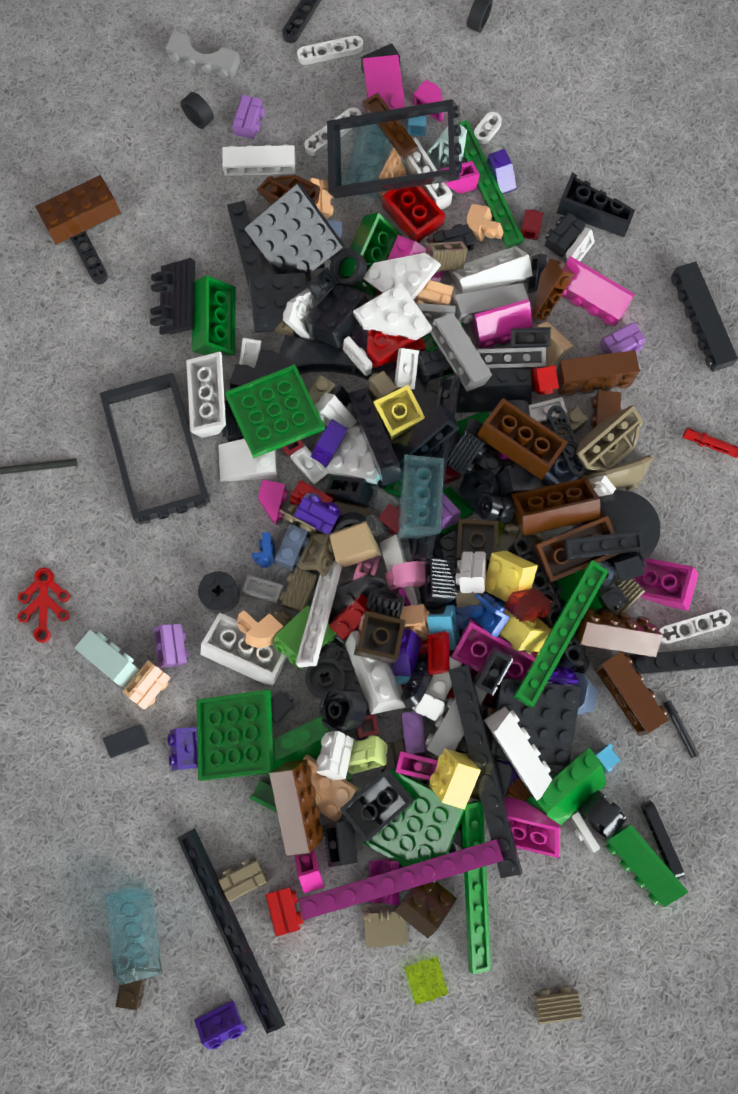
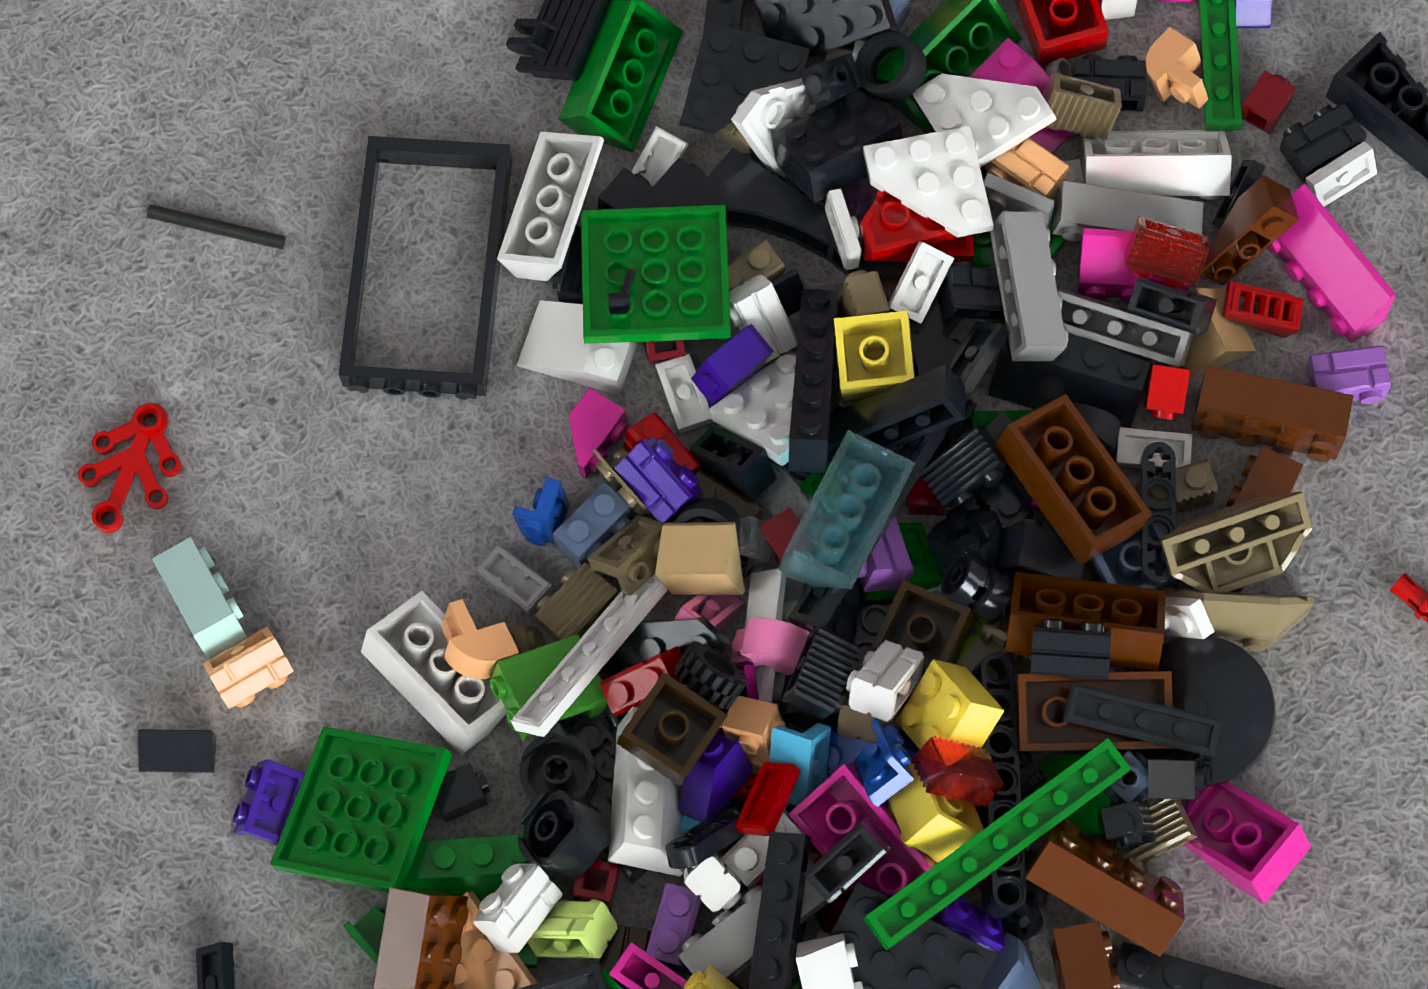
camera: 30 degrees right, 5 degrees down
(170, 645) = (315, 616): medium lavender brick -> none
(225, 601) = (429, 537): black brick -> none
(263, 431) = (620, 301): none -> black hand
(520, 312) = (1166, 252): none -> clear red brick
(559, 524) = (1071, 650): none -> black brick
(581, 322) = (1285, 309): none -> red slope
(692, 624) = (1263, 933): white beam -> none

